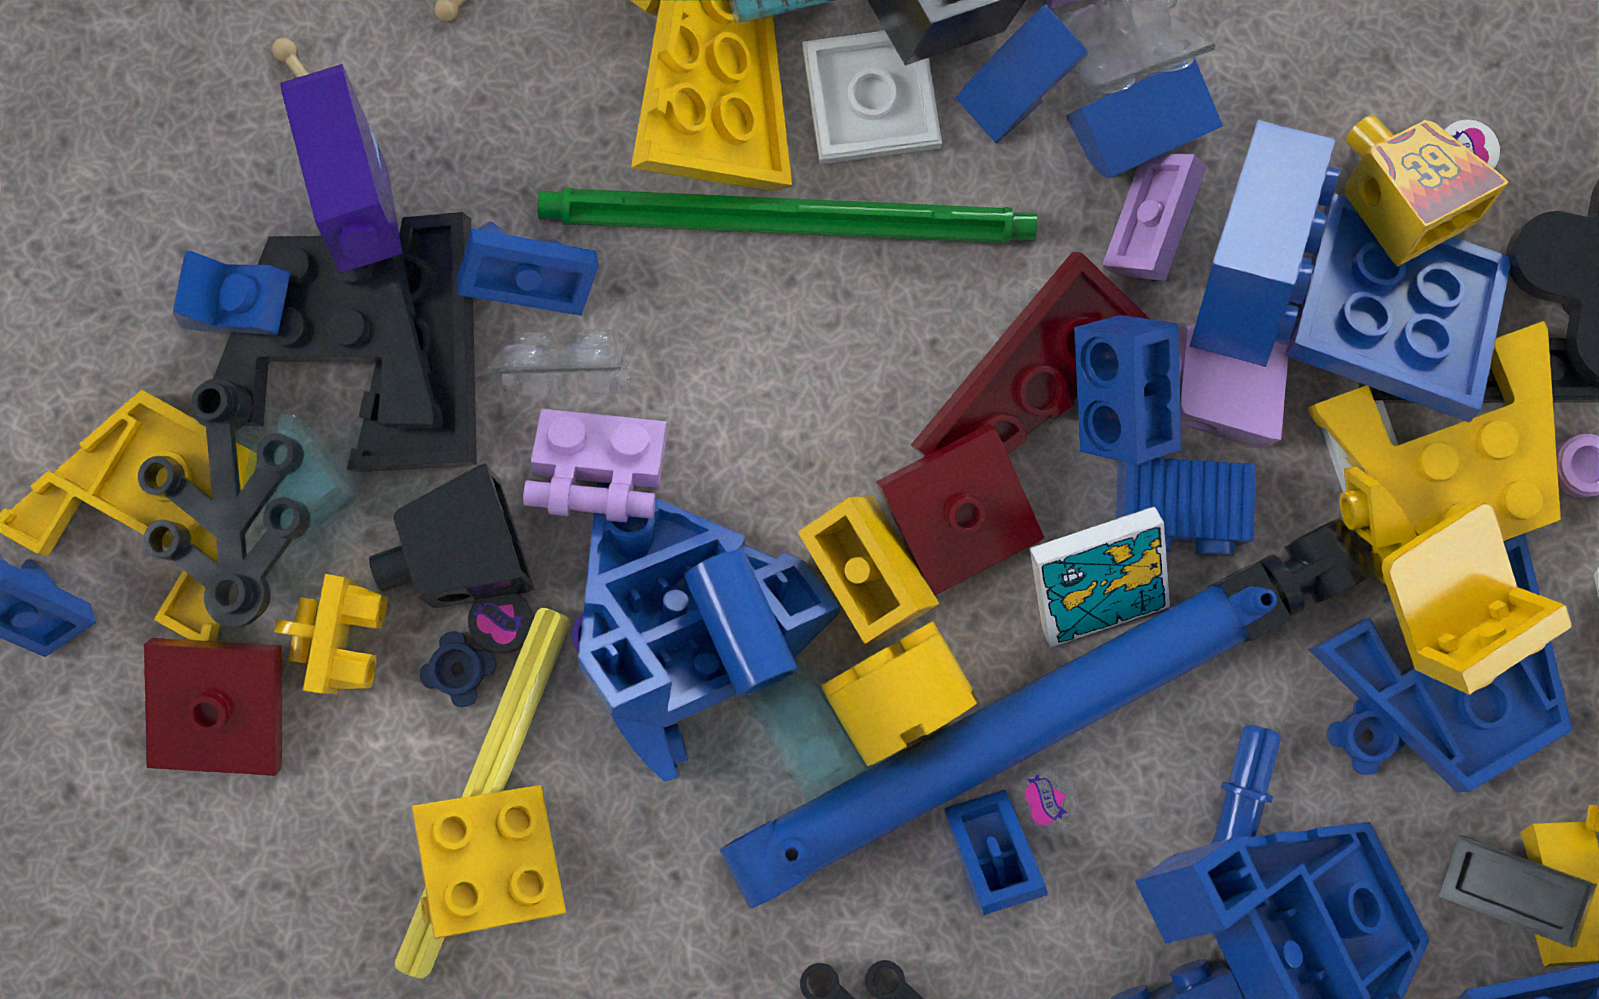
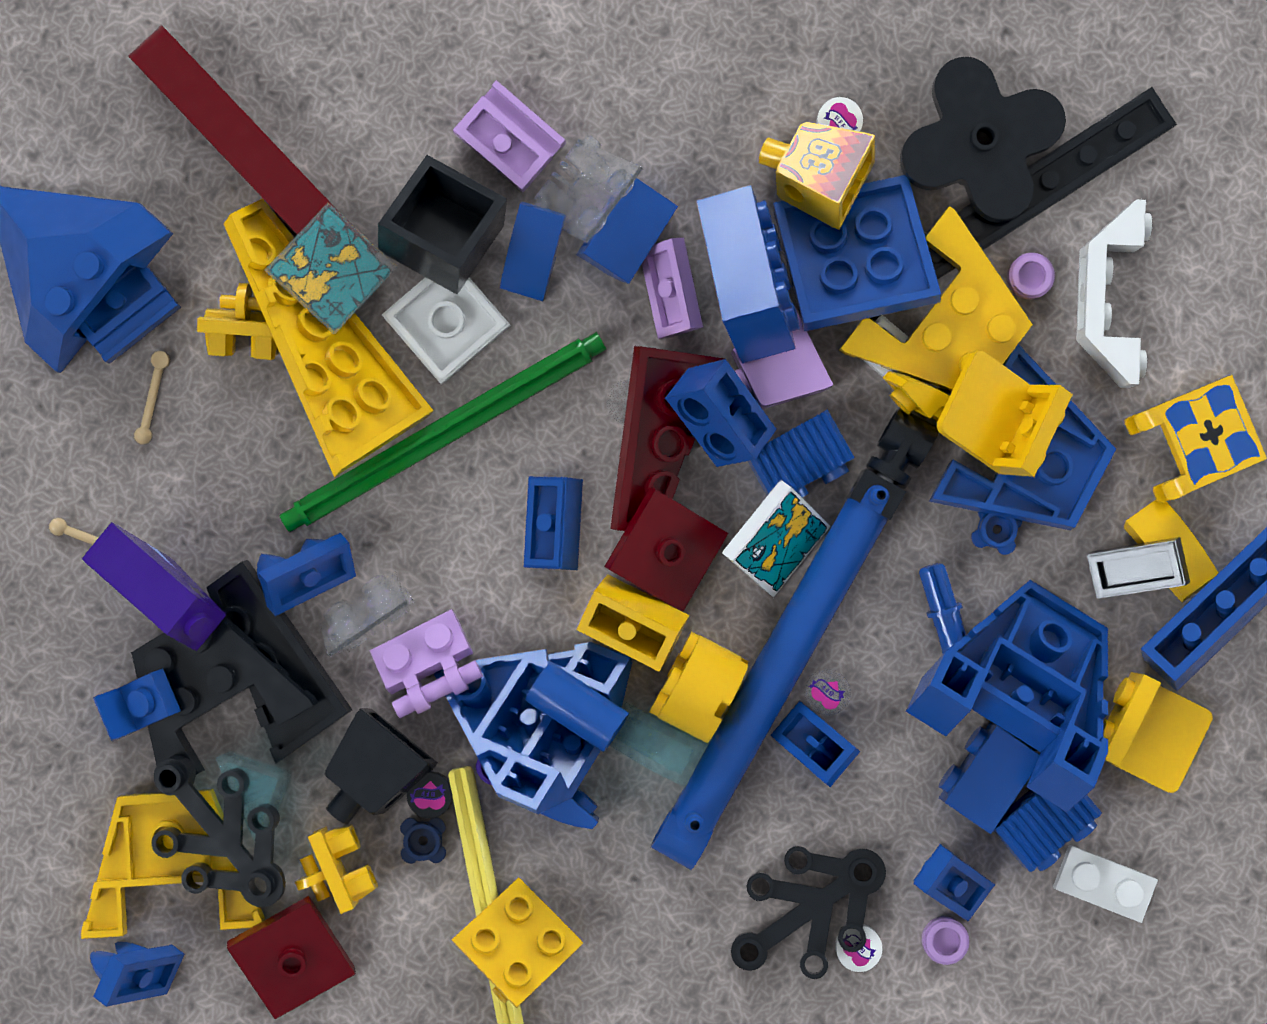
camera: 30 degrees left, 5 degrees up
(847, 398) = (553, 523): none -> blue slope

